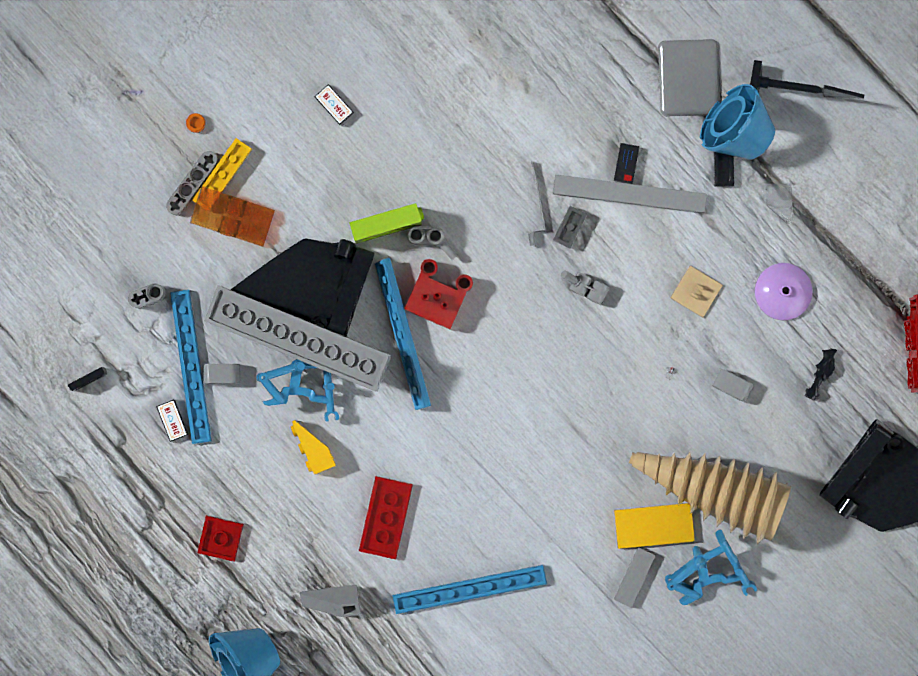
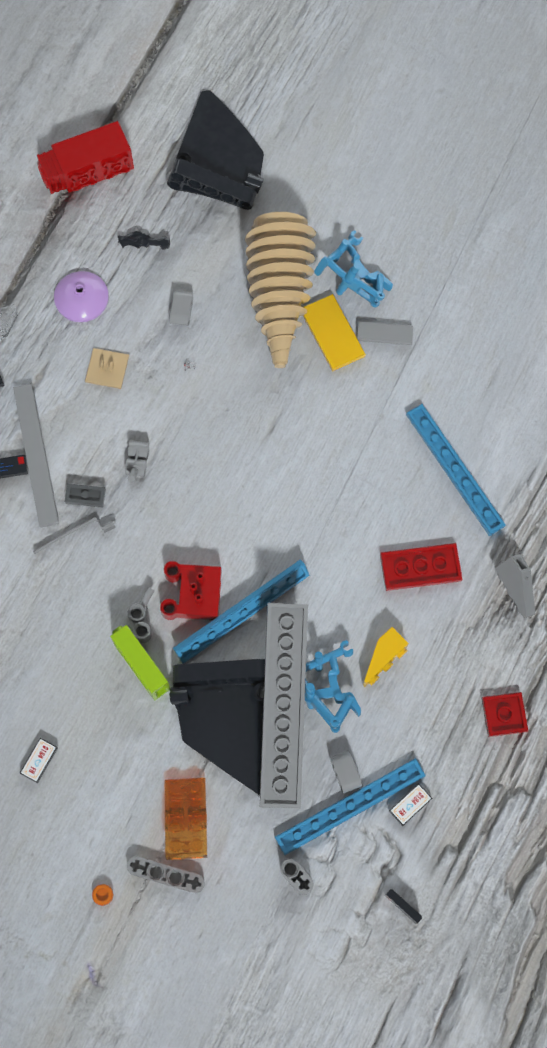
camera: 110 degrees left, 15 degrees down
(226, 167) = (139, 845): yellow plate -> none

